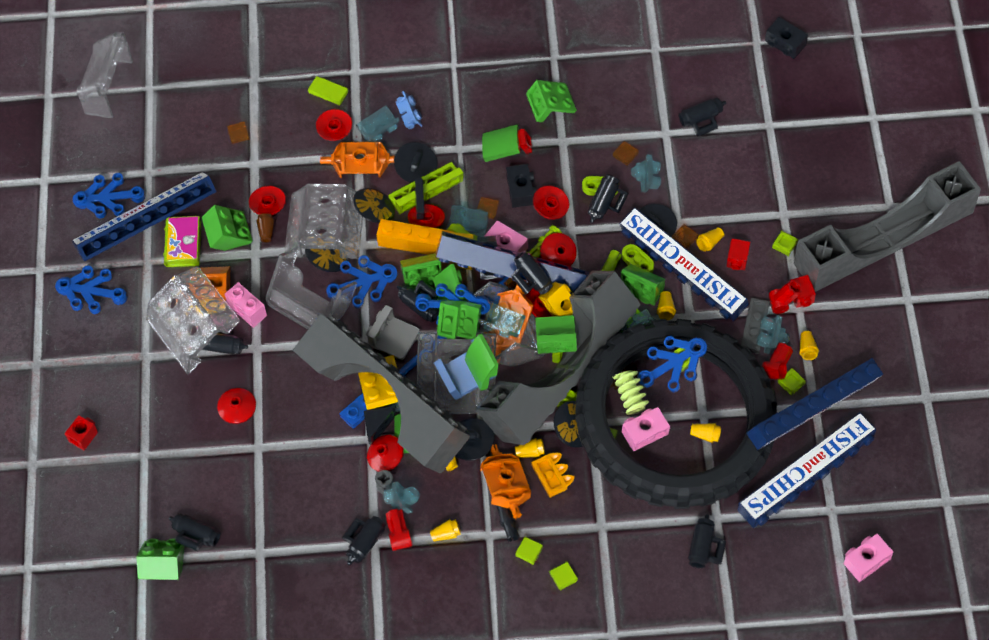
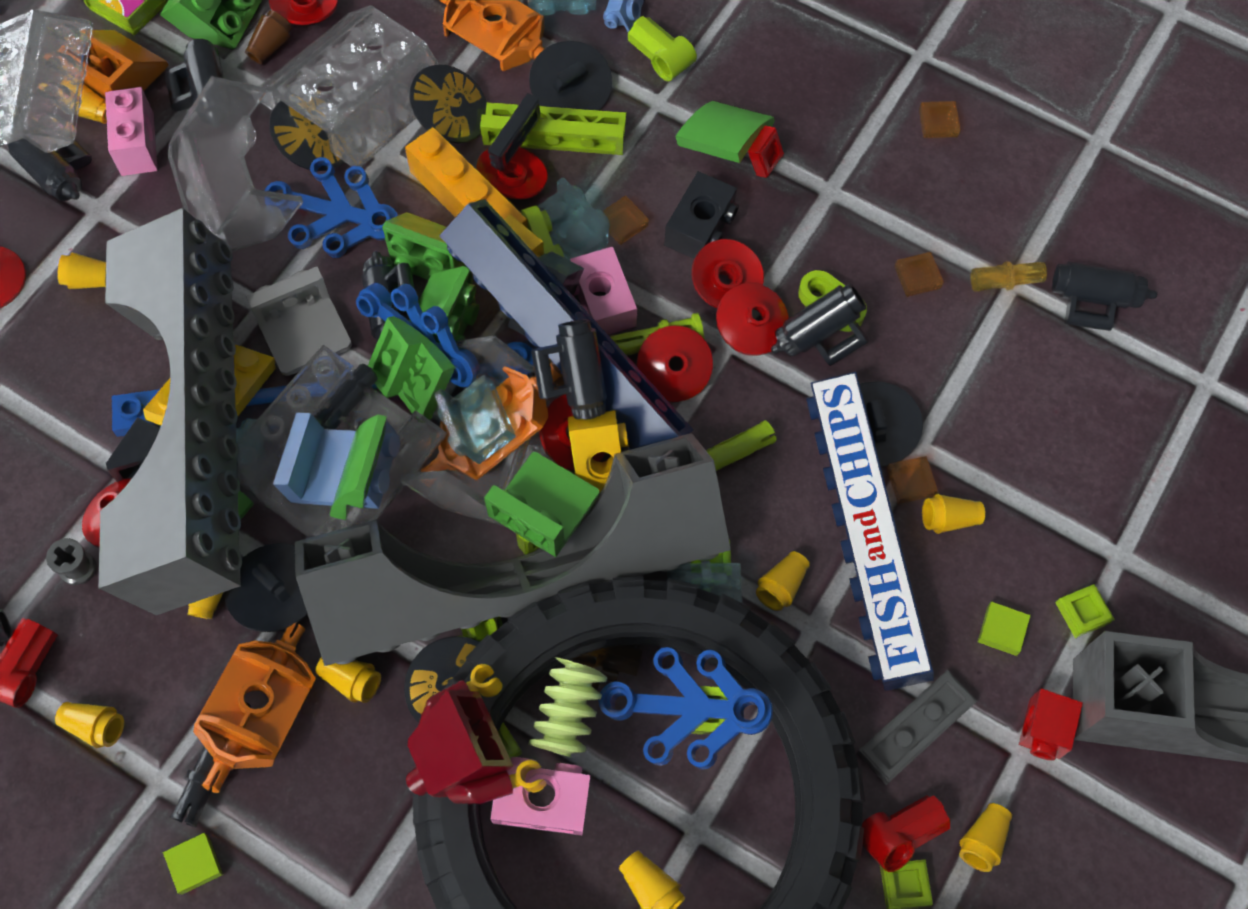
camera: 30 degrees right, 5 degrees up
(255, 262) = (200, 64): none -> black piece
(280, 374) = (81, 271): none -> yellow cone
(400, 497) = (60, 609): clear light blue hips -> none
(442, 345) = (346, 397): none -> black axle
(449, 124) = (667, 54): none -> lime piece
(549, 97) = (864, 109): bright green bracket -> none
(550, 474) = (342, 748): light orange plate -> none
(569, 218) = (740, 328): none -> red dish
(584, 82) = (939, 119): none -> clear orange tile
(607, 427) = (461, 749): none -> dark red torso
(640, 258) = (797, 469): lime plate -> none
(643, 284) = (768, 513): bright green slope -> none
(644, 173) = (925, 324): clear light blue hips -> none
(661, 131) = (1007, 275): none -> clear yellow axle
(738, 254) = (981, 575): red brick -> none
(760, 269) = (1004, 628): none -> lime tile
(775, 333) = (940, 773): clear light blue hips -> none
(782, 297) = (1004, 712): red piece -> none

